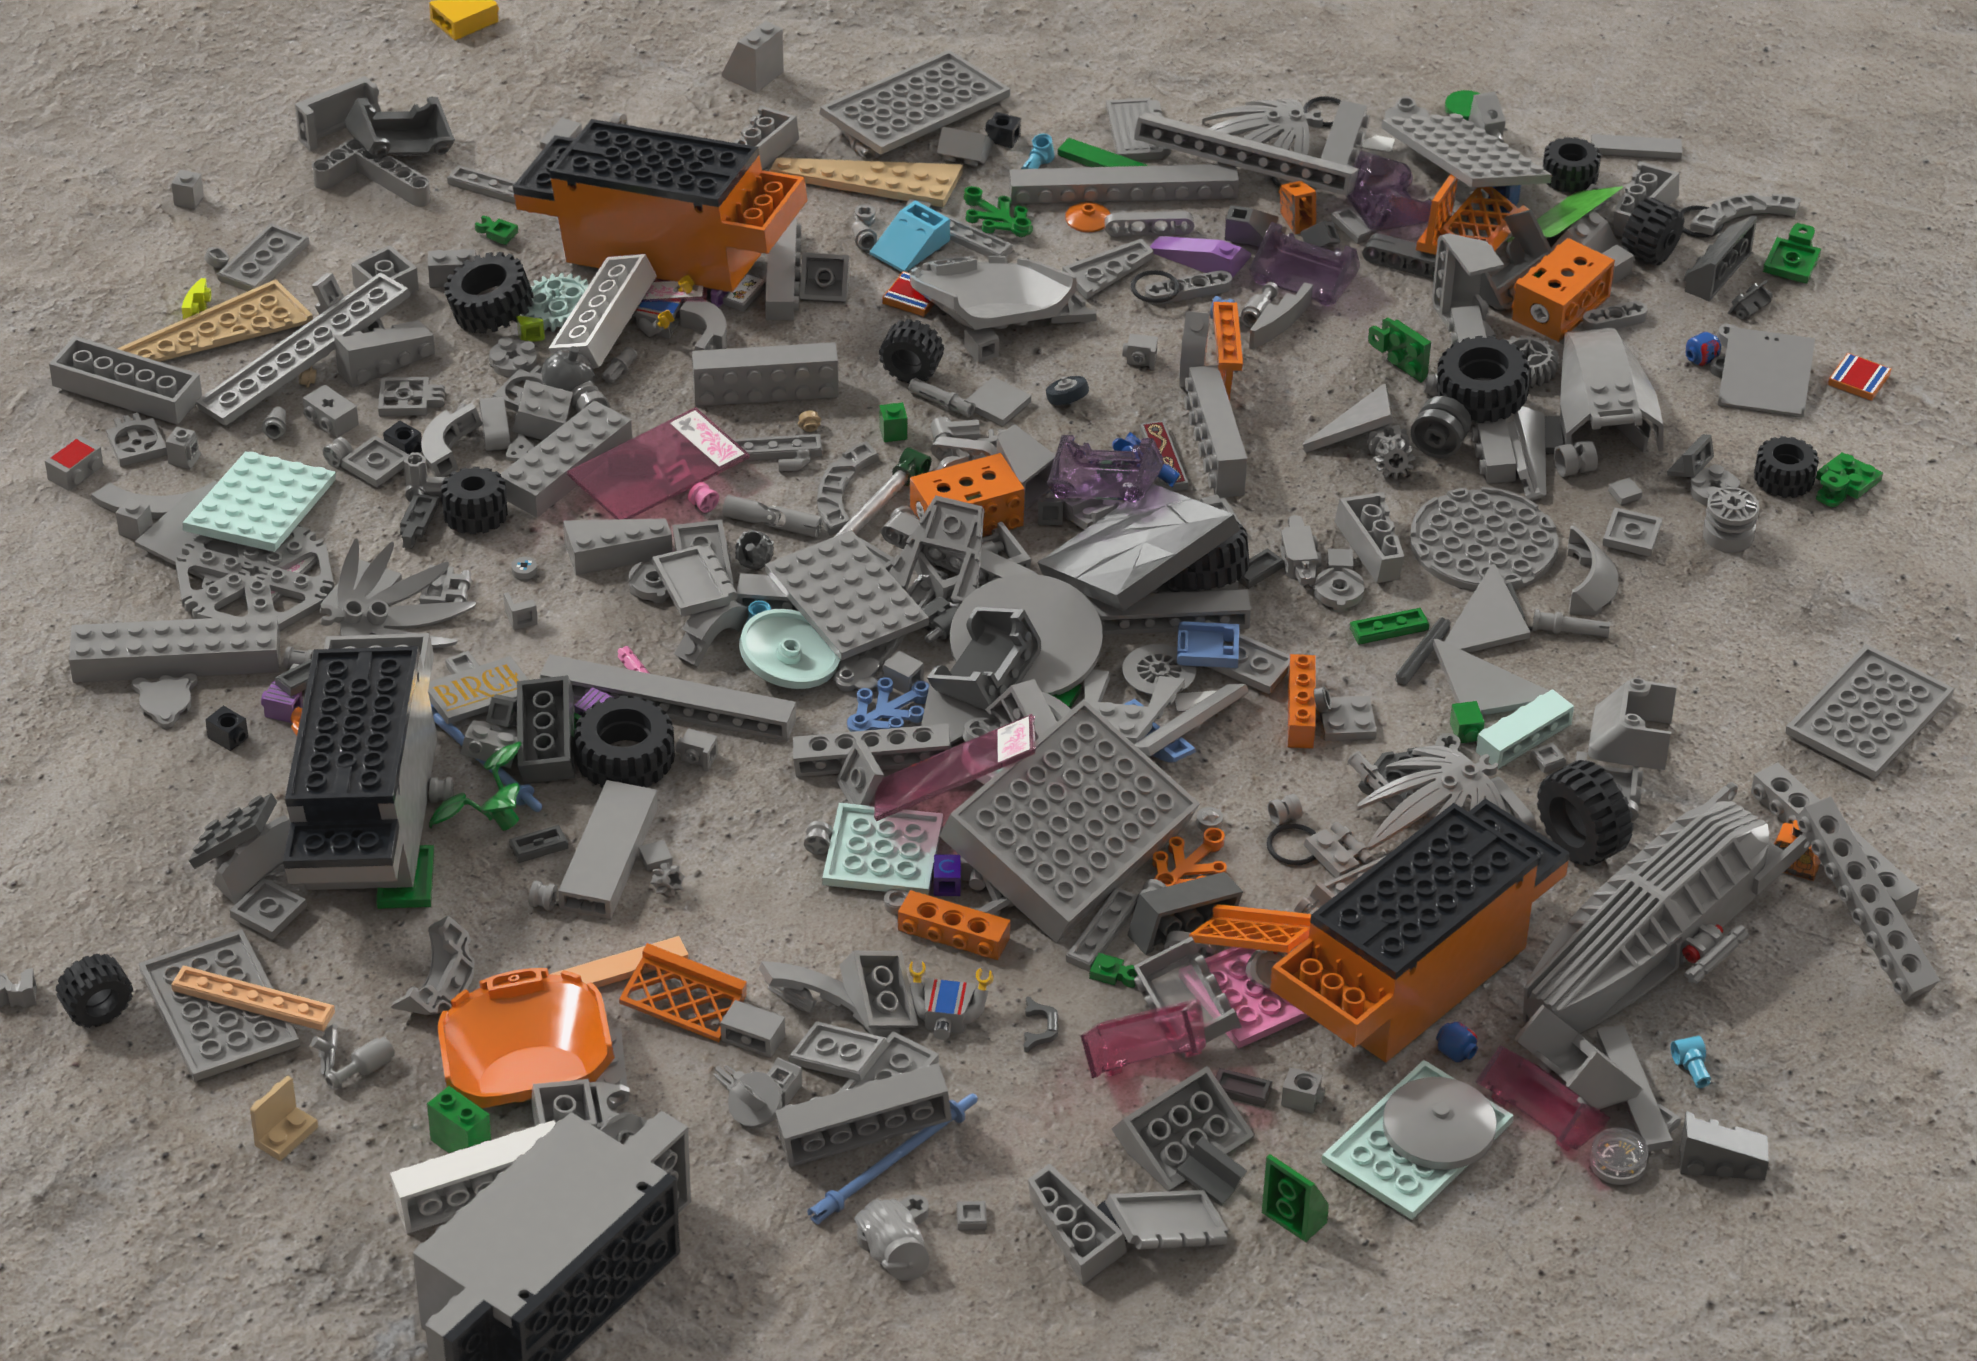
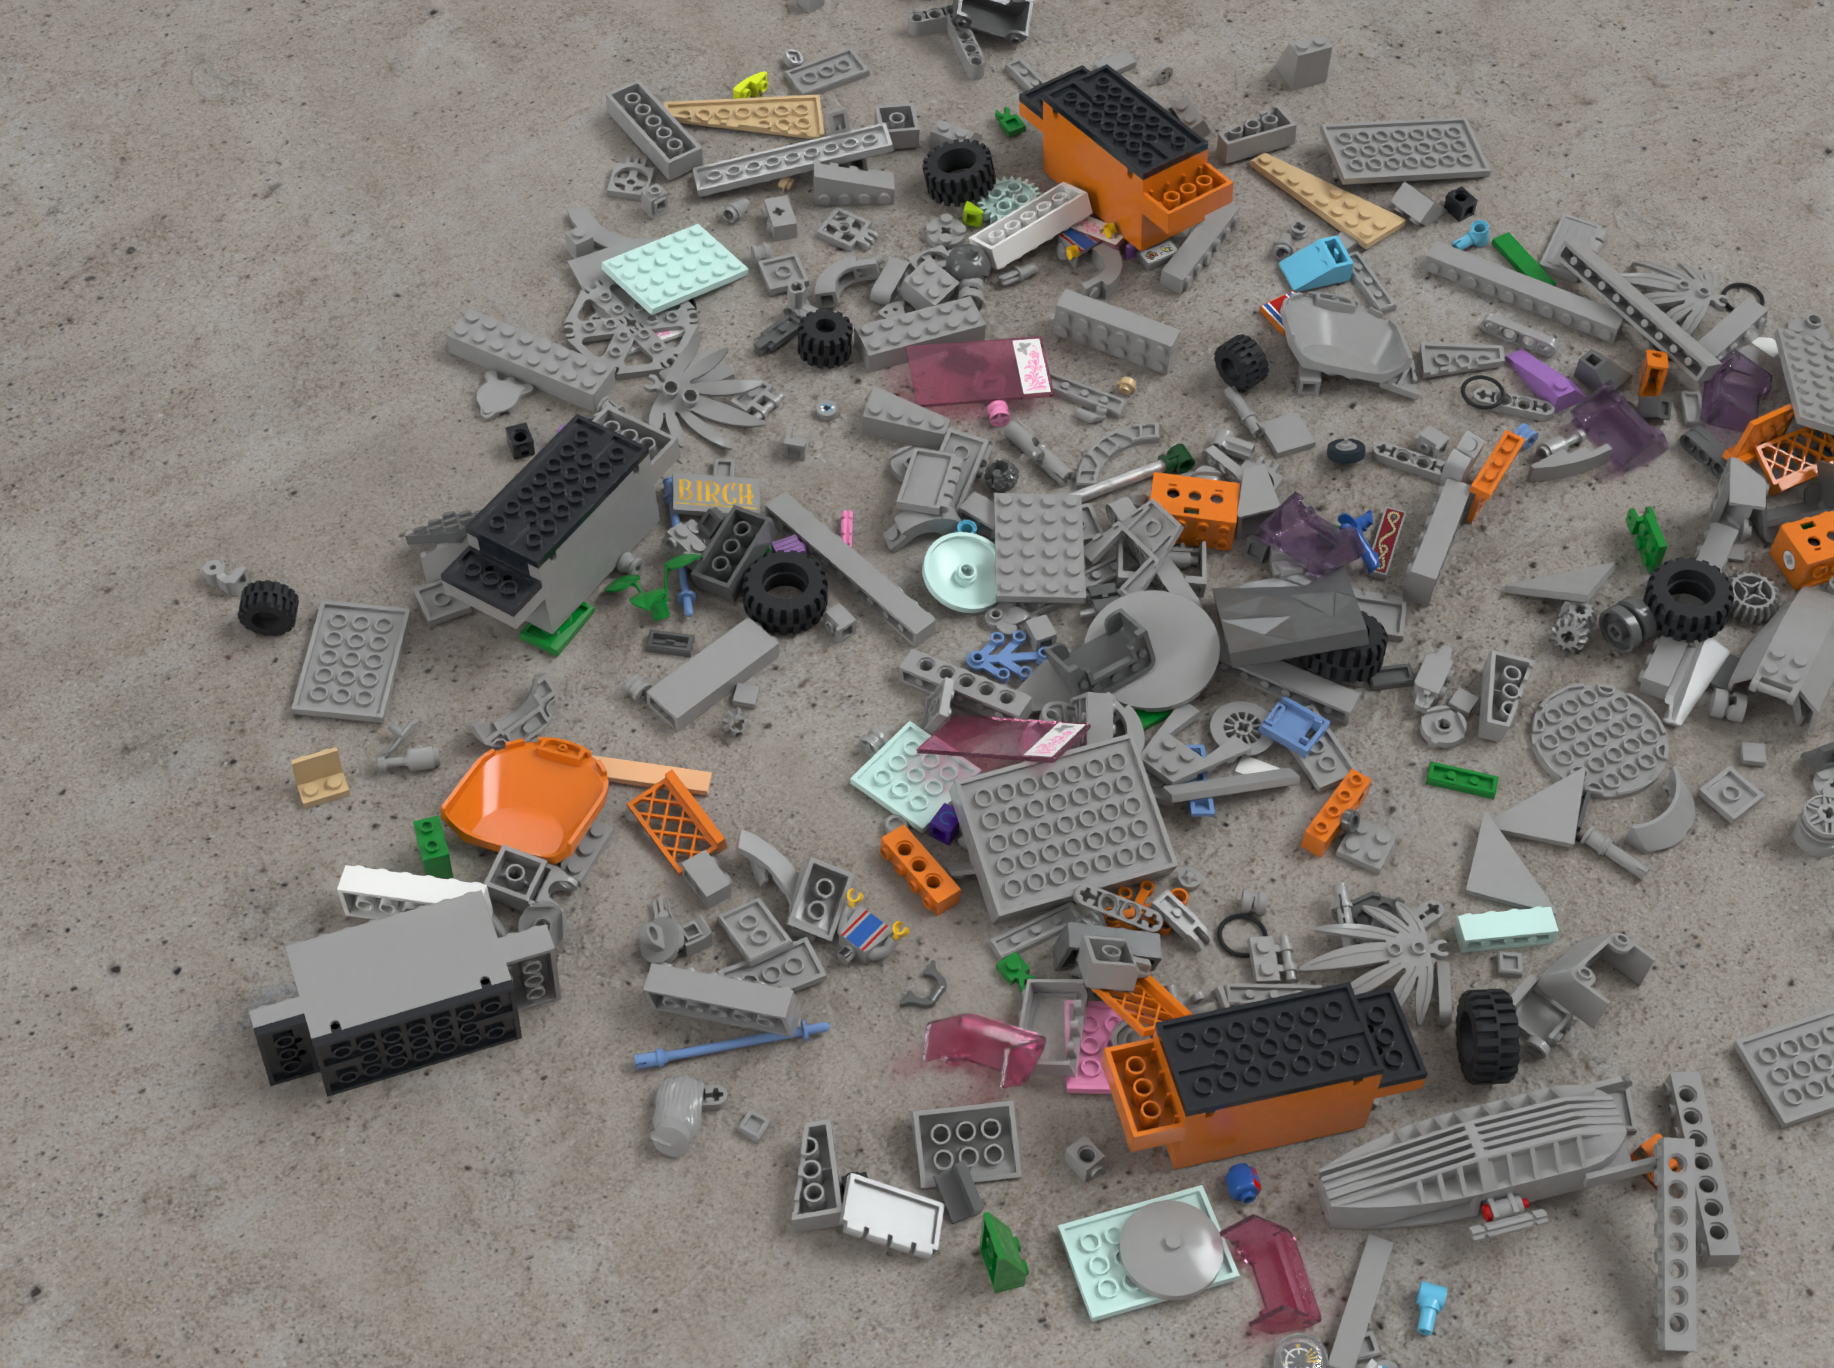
camera: 30 degrees right, 10 degrees up
(74, 463) = (573, 179): light grey brick -> none
(253, 998) = (374, 669): light nougat tile -> none
(404, 437) = (813, 264): black brick -> none
(825, 277) = (1226, 269): light grey slope -> none
(893, 422) = (1188, 416): green brick -> none
(1019, 225) = (1410, 291): green plant -> none
(1087, 217) = (1475, 306): orange dish -> none
(1161, 374) = (1410, 465): none -> light grey beam
(1170, 862) = (1119, 904): none -> light grey beam
(1206, 910) = (1110, 964): none -> light grey hinge
(1233, 853) = (1182, 920): none -> light grey hinge
(1244, 1087) = (1042, 1128): dark grey tile -> none
(1422, 651) = (1472, 816): dark grey axle -> none
(1466, 721) = (1461, 898): green brick -> none
(1576, 1060) = (1331, 1261): light grey windscreen -> none

